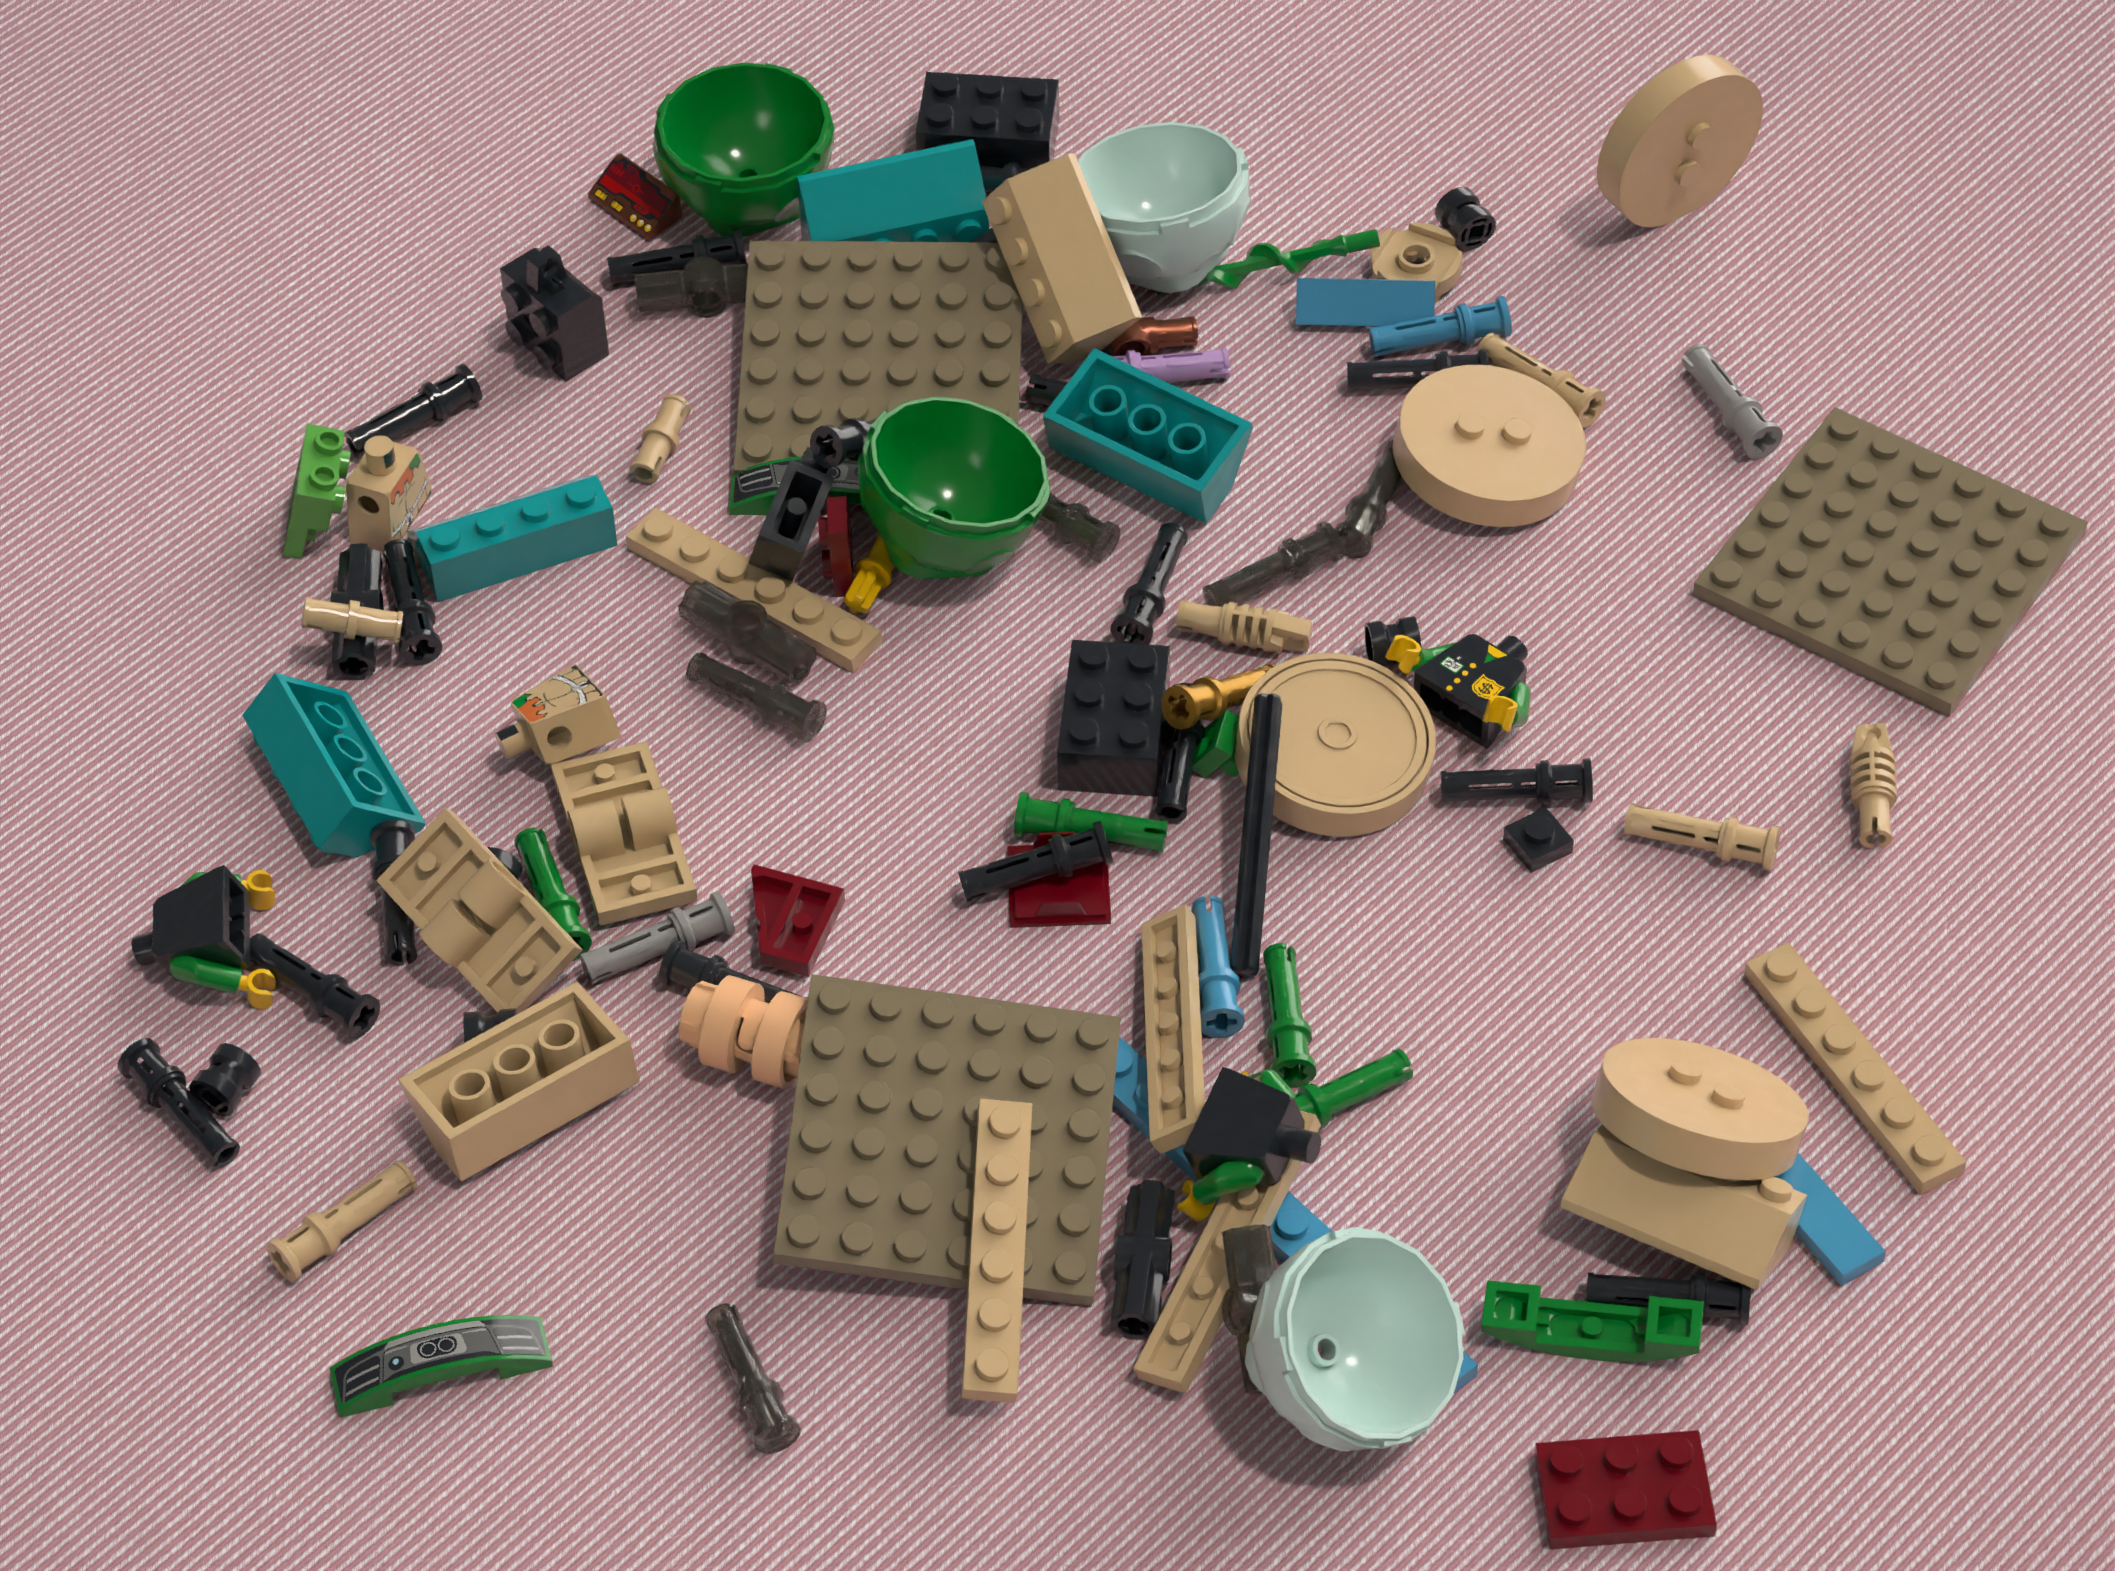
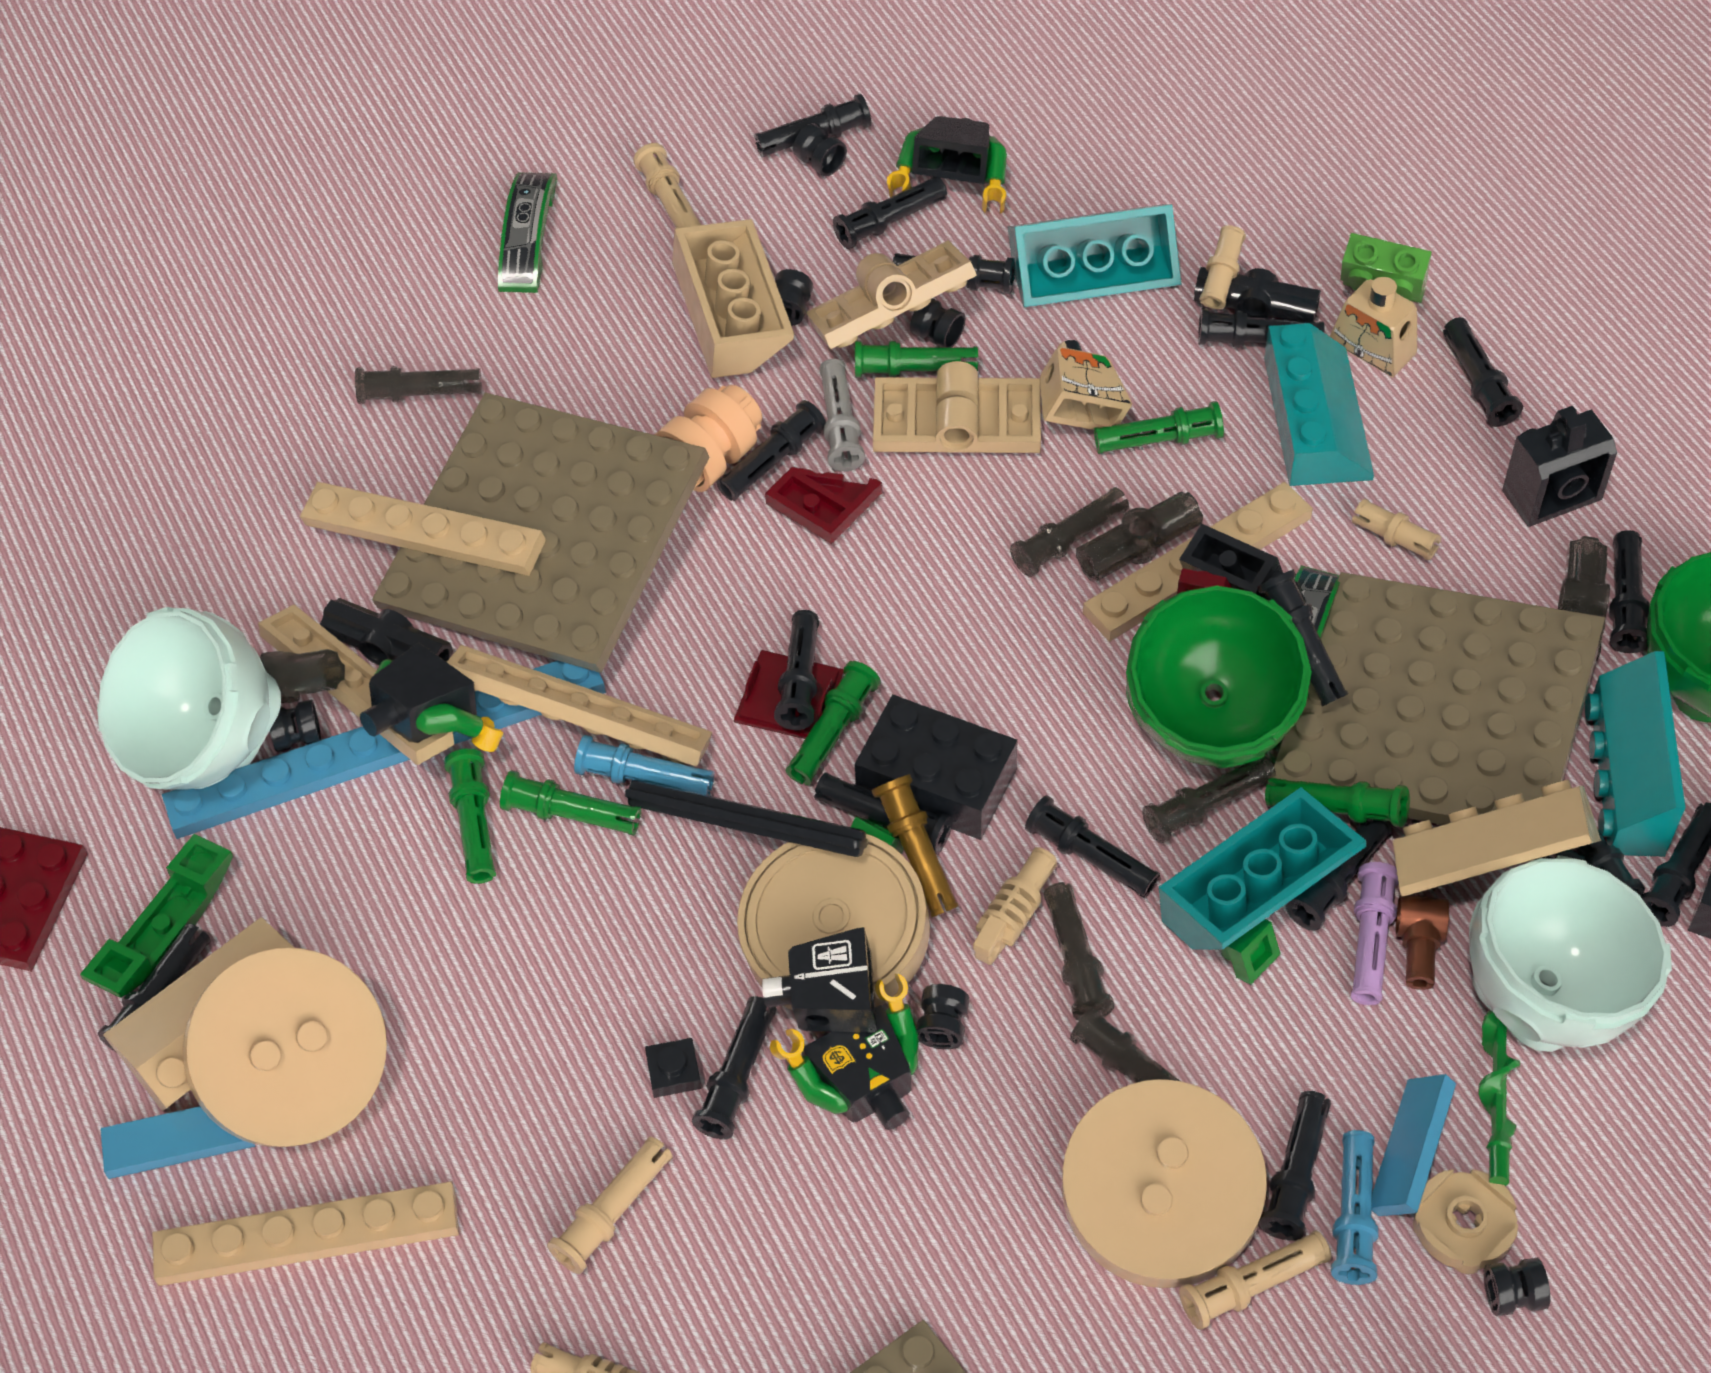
camera: 110 degrees right, 5 degrees up
(577, 637) = (1182, 429): none -> green pin
(1031, 383) = (1357, 801): none -> green pin
(1423, 695) = (828, 984): none -> black torso

